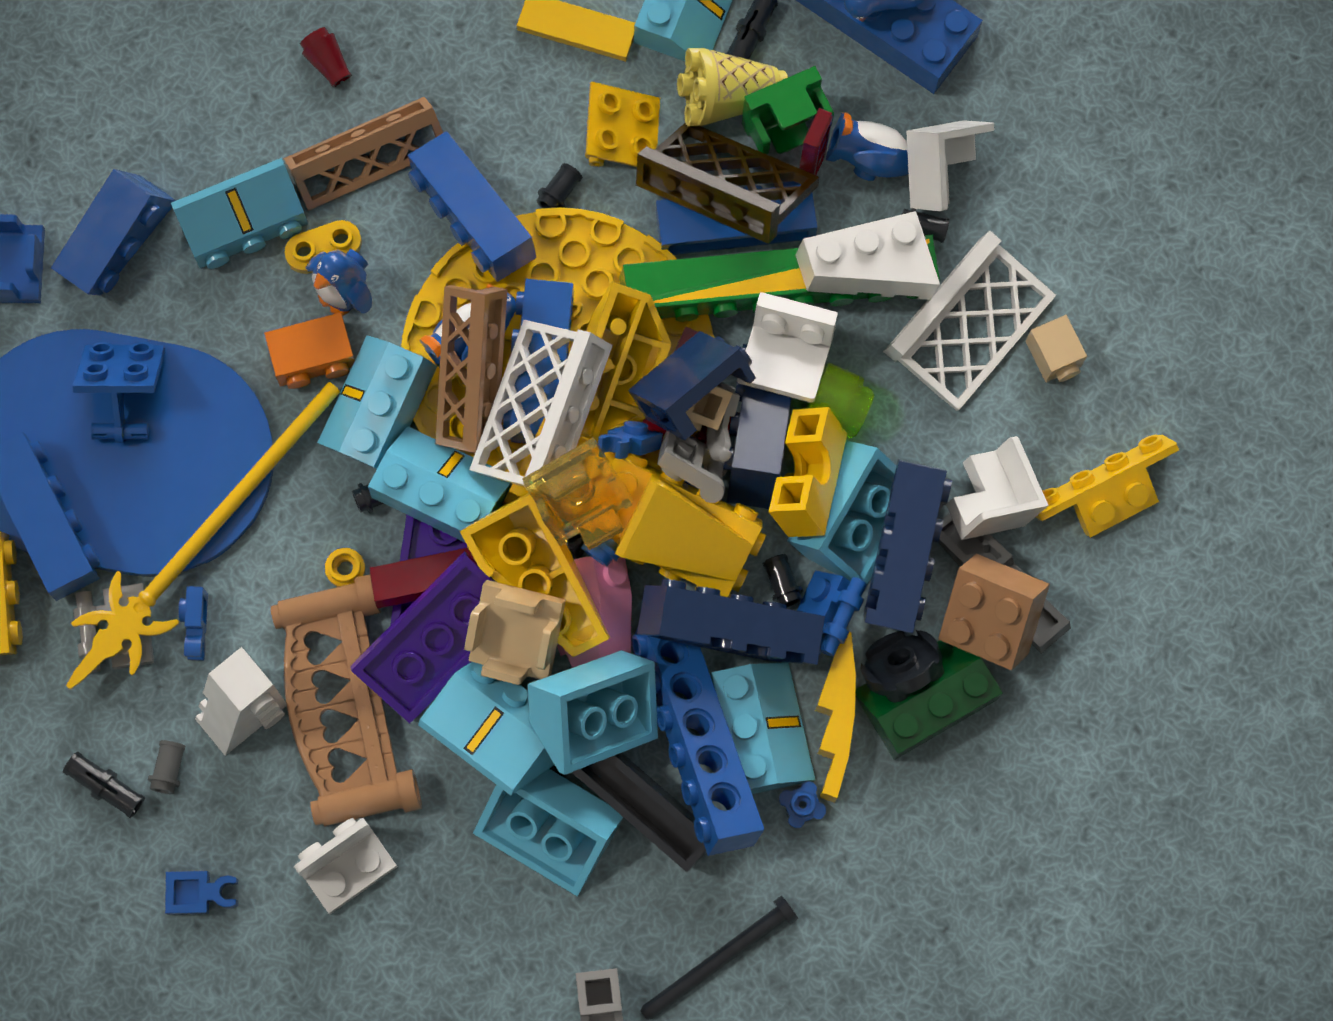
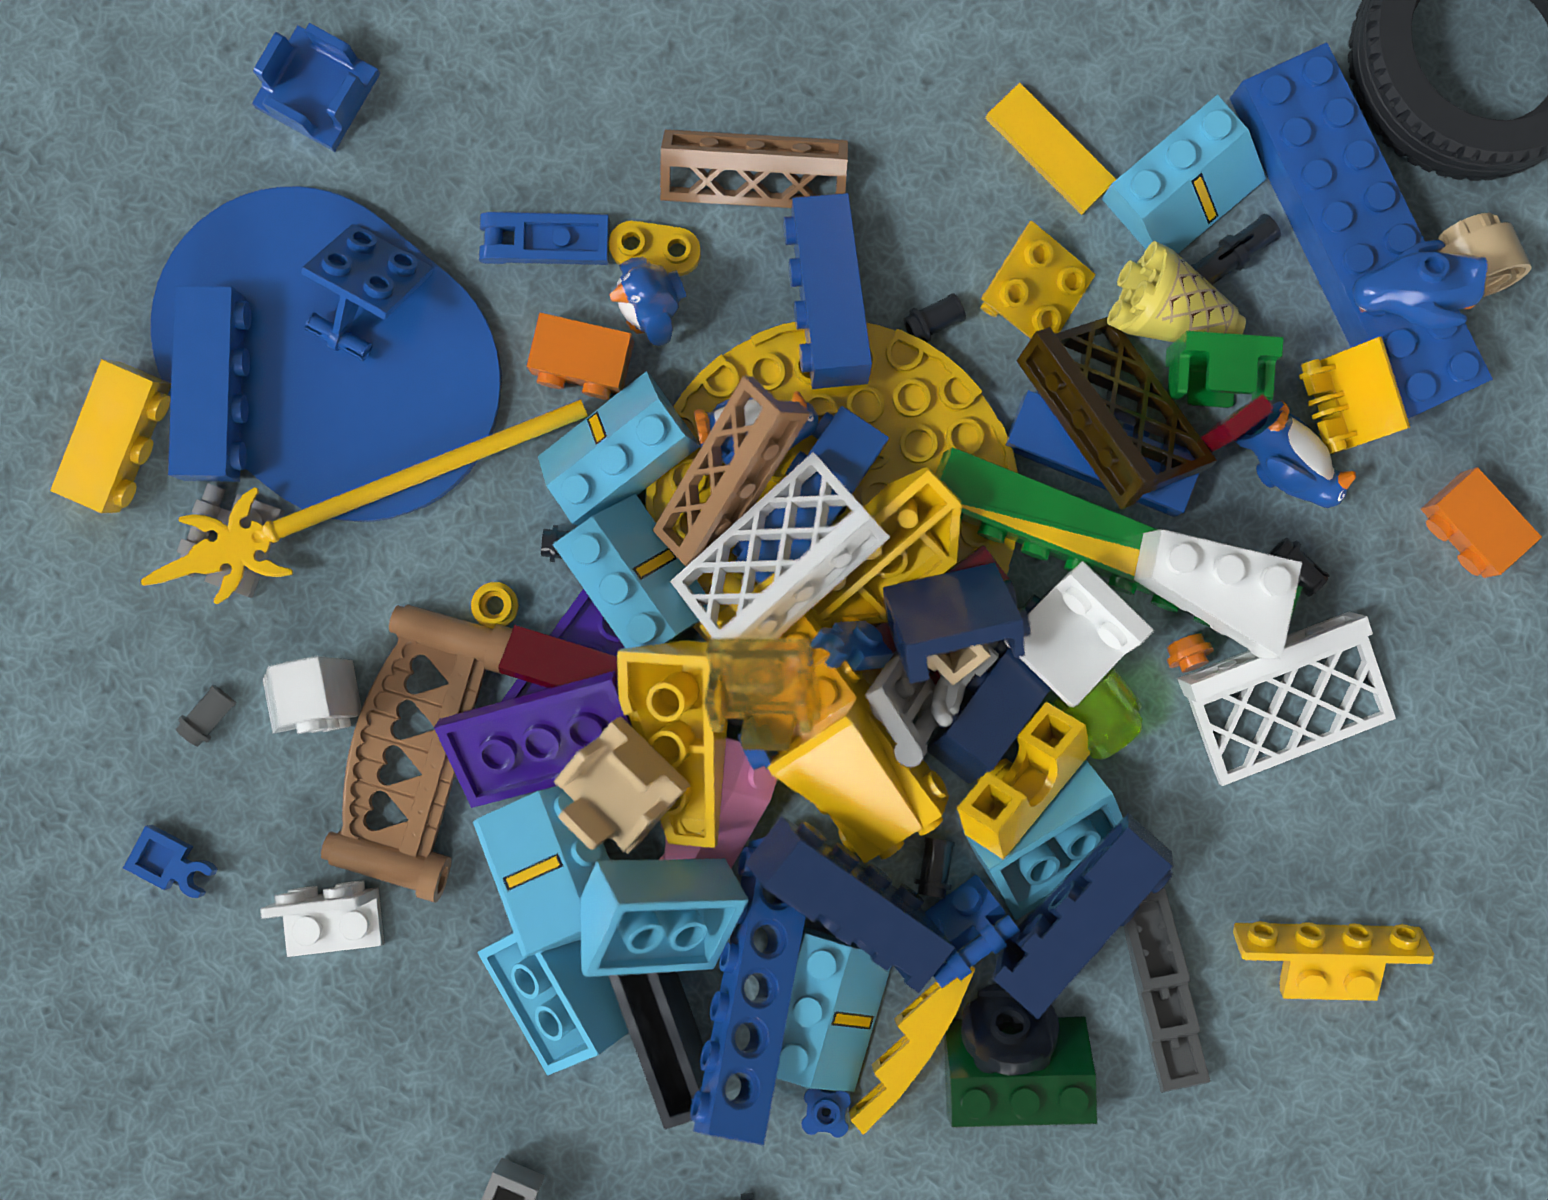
camera: 30 degrees right, 10 degrees up
(81, 769) = (132, 699): black pin -> none
(112, 231) = (443, 114): blue wedge -> none
(194, 614) = (314, 572): blue plate -> none
(236, 281) = (545, 238): none -> blue plate
(240, 214) = (582, 168): medium azure slope -> none
(325, 55) = (767, 39): dark red cone -> none
(880, 327) = (1189, 653): none -> orange plate
(892, 83) = (1355, 396): none -> yellow hinge
(929, 155) = (1351, 498): white panel -> none
(993, 611) = (1137, 1034): medium nougat brick -> none
(1004, 495) = (1221, 905): white panel -> none
(1035, 126) = (1479, 524): none -> orange brick
(1056, 349) = (1363, 783): tan brick -> none

